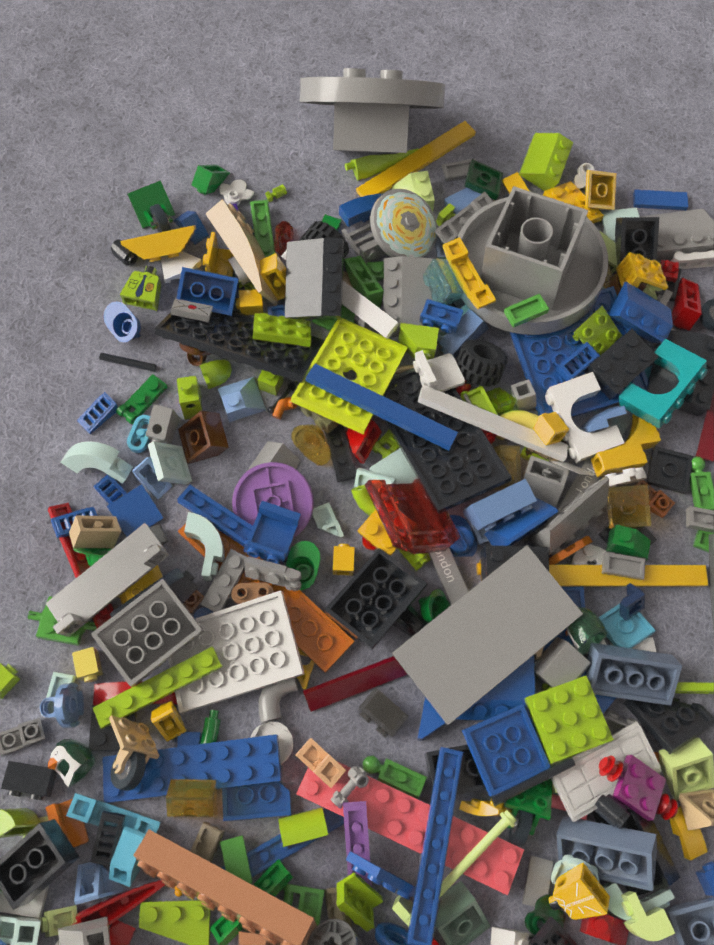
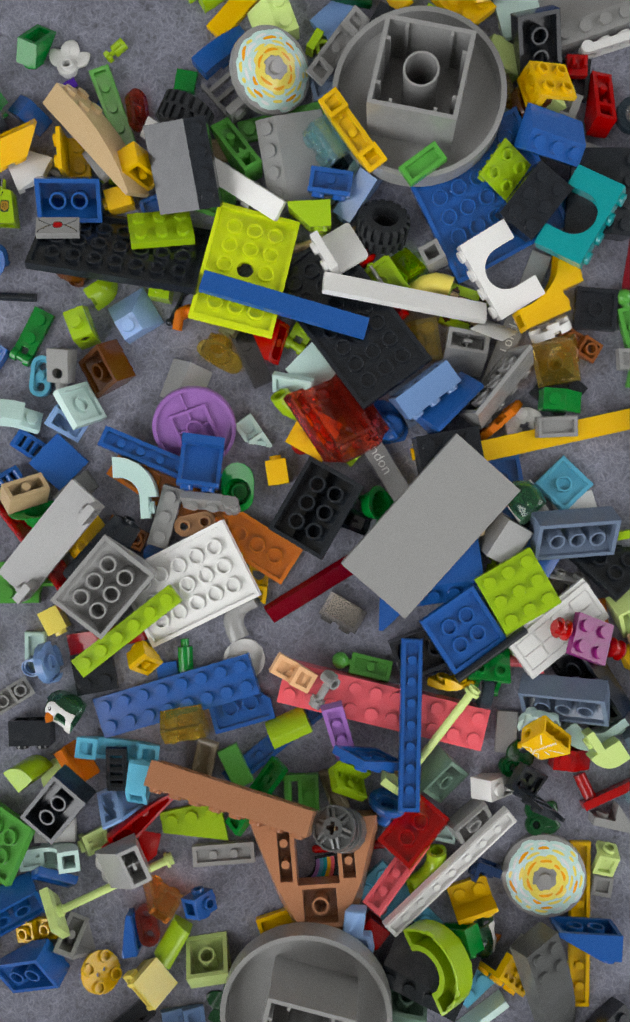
camera: 10 degrees left, 20 degrees up
(134, 752) = (120, 692): tan plate -> none
(550, 428) = (466, 291): yellow brick -> none
(565, 374) = (486, 220): blue slope -> none
(600, 421) = (515, 271): medium blue slope -> none
(612, 810) = (566, 665): black brick -> none
(632, 602) = (568, 464): dark blue bracket -> none

